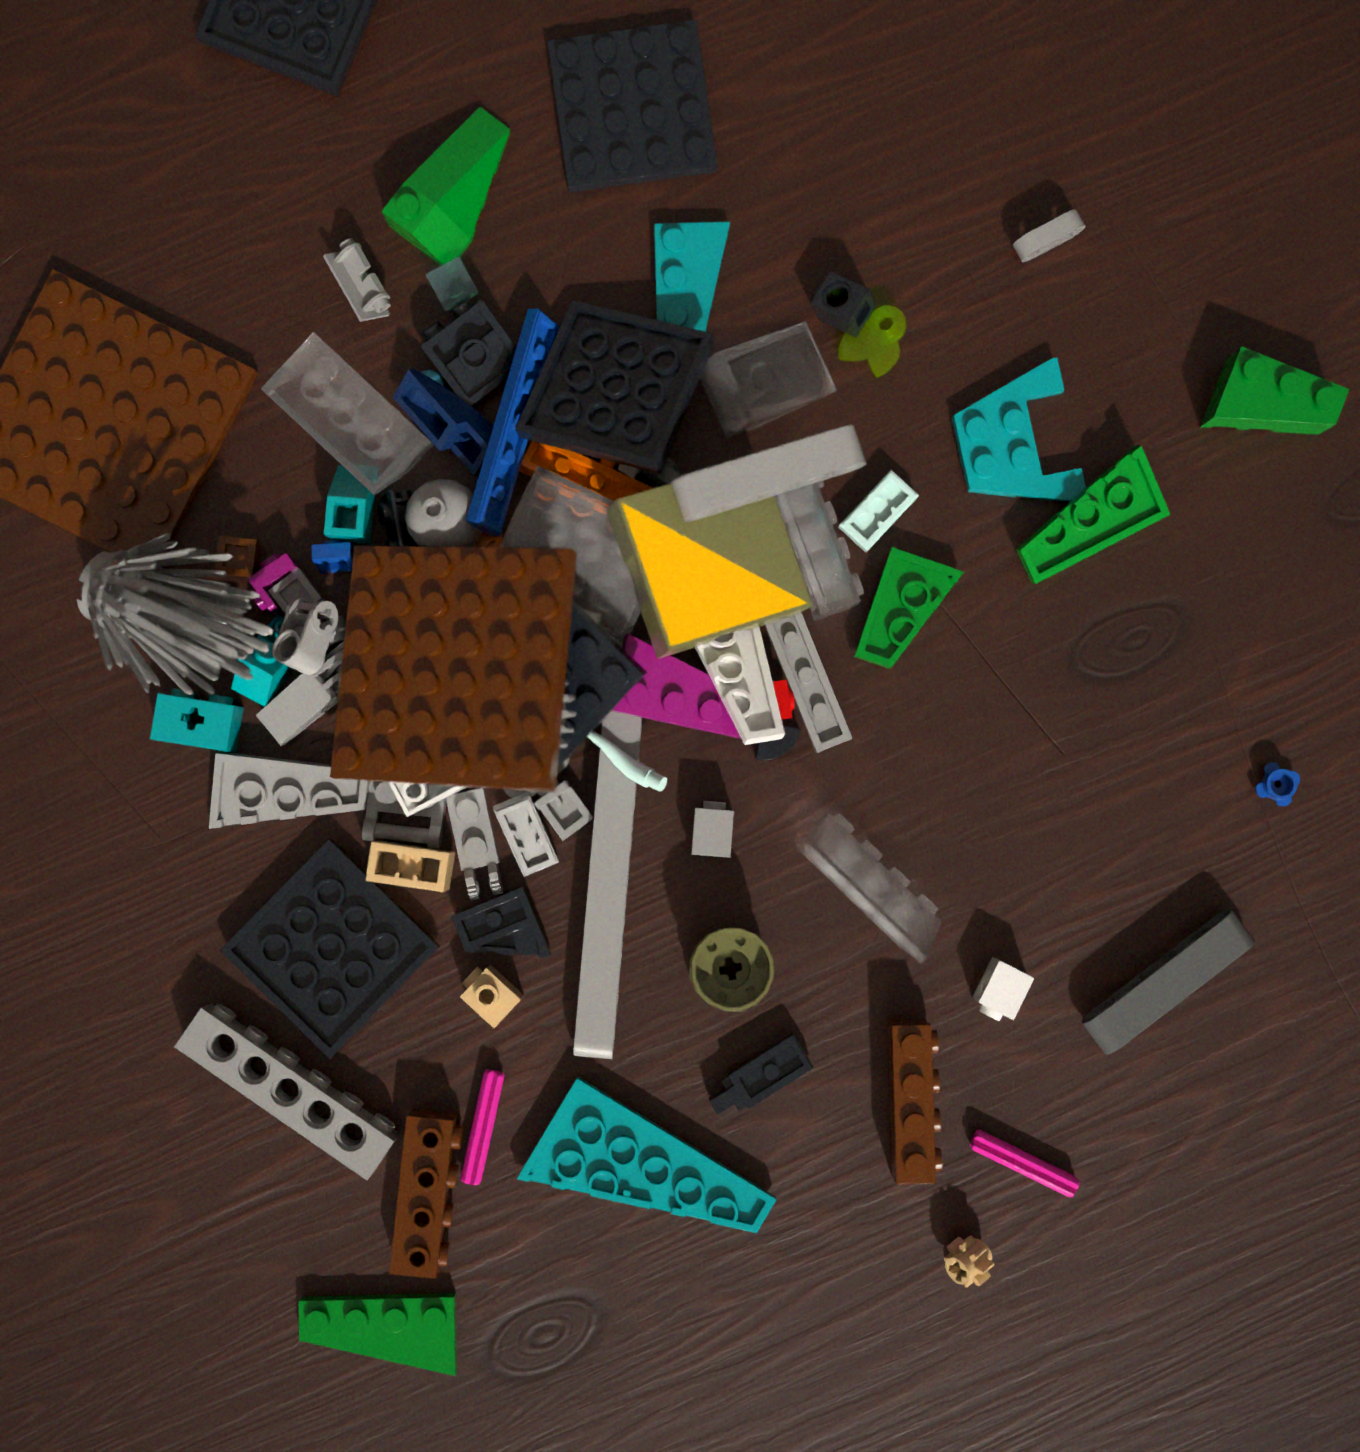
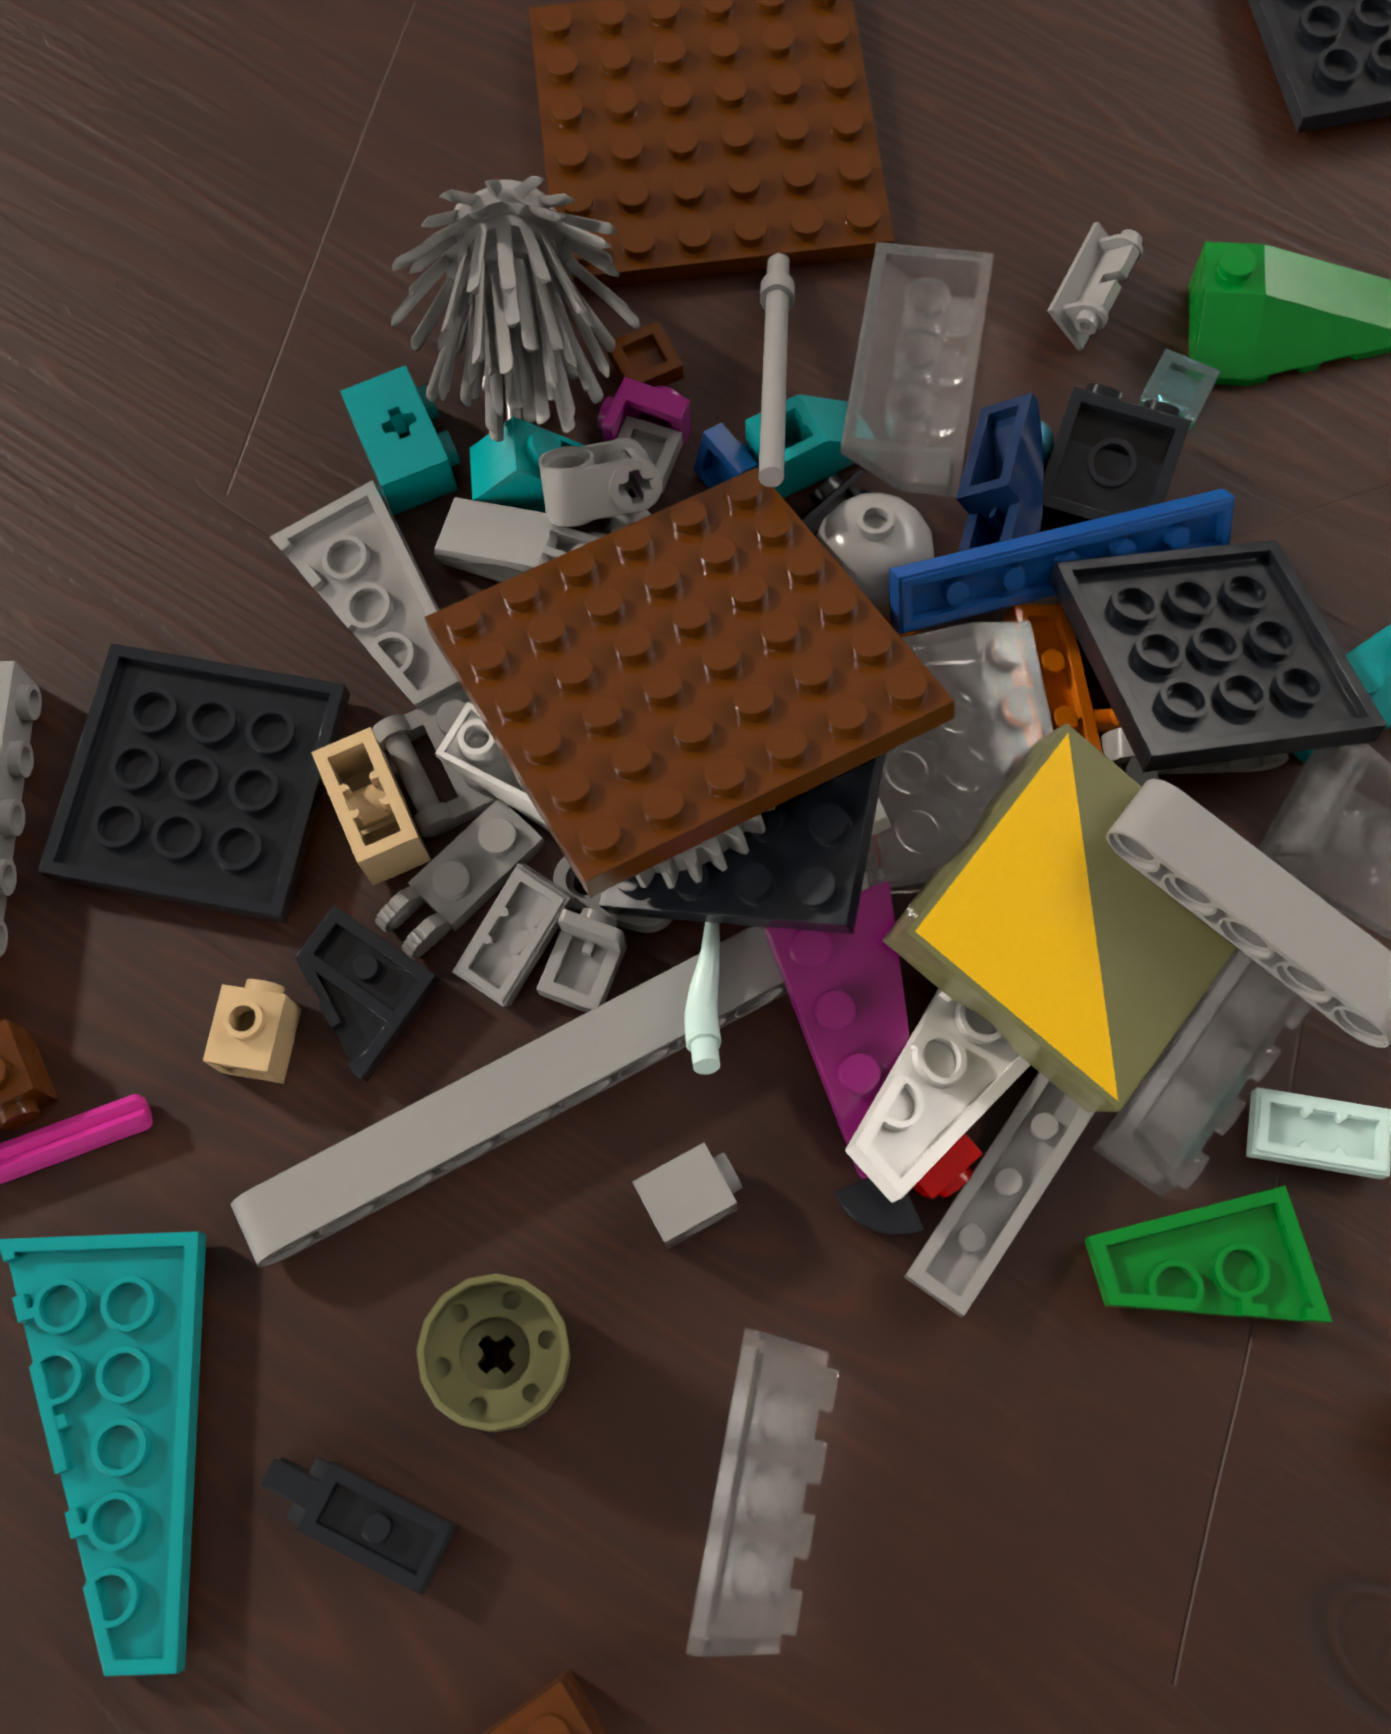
camera: 65 degrees right, 15 degrees down
(250, 460) = (776, 298): none -> light grey bar

